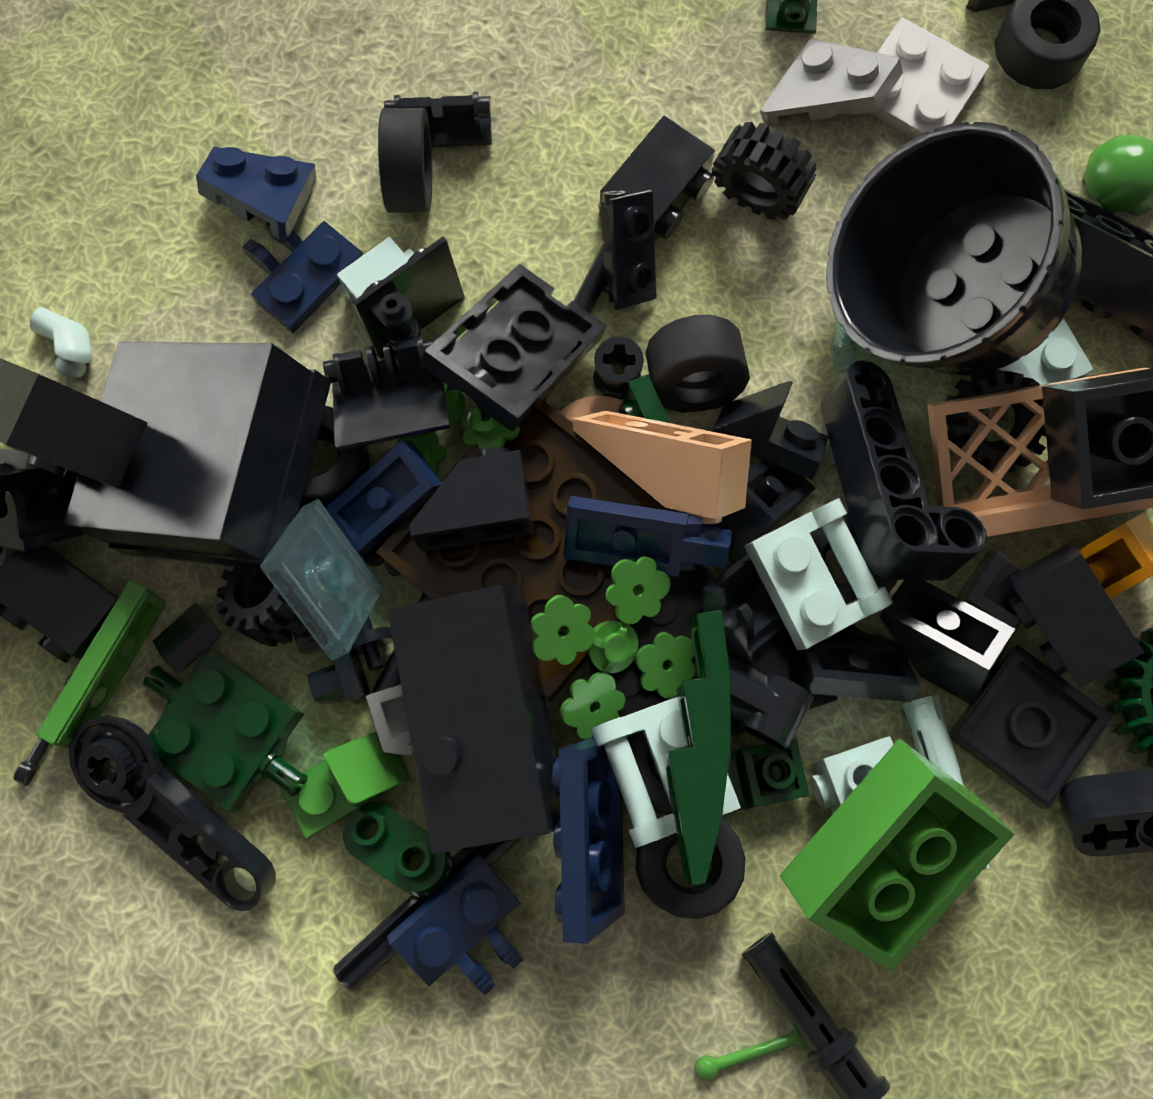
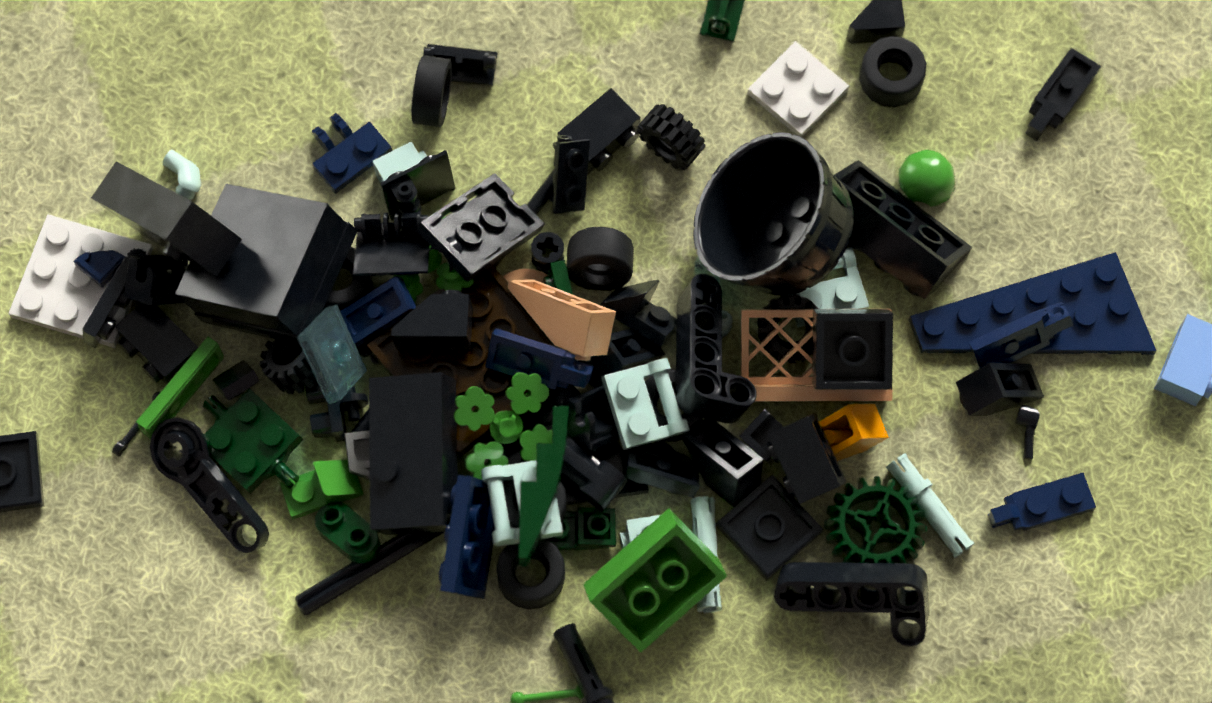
camera: 10 degrees right, 5 degrees down
(257, 186) = (329, 91): dark blue wing -> none
(454, 922) = (375, 581): dark blue hinge -> none
(832, 81) = (733, 80): wing -> none

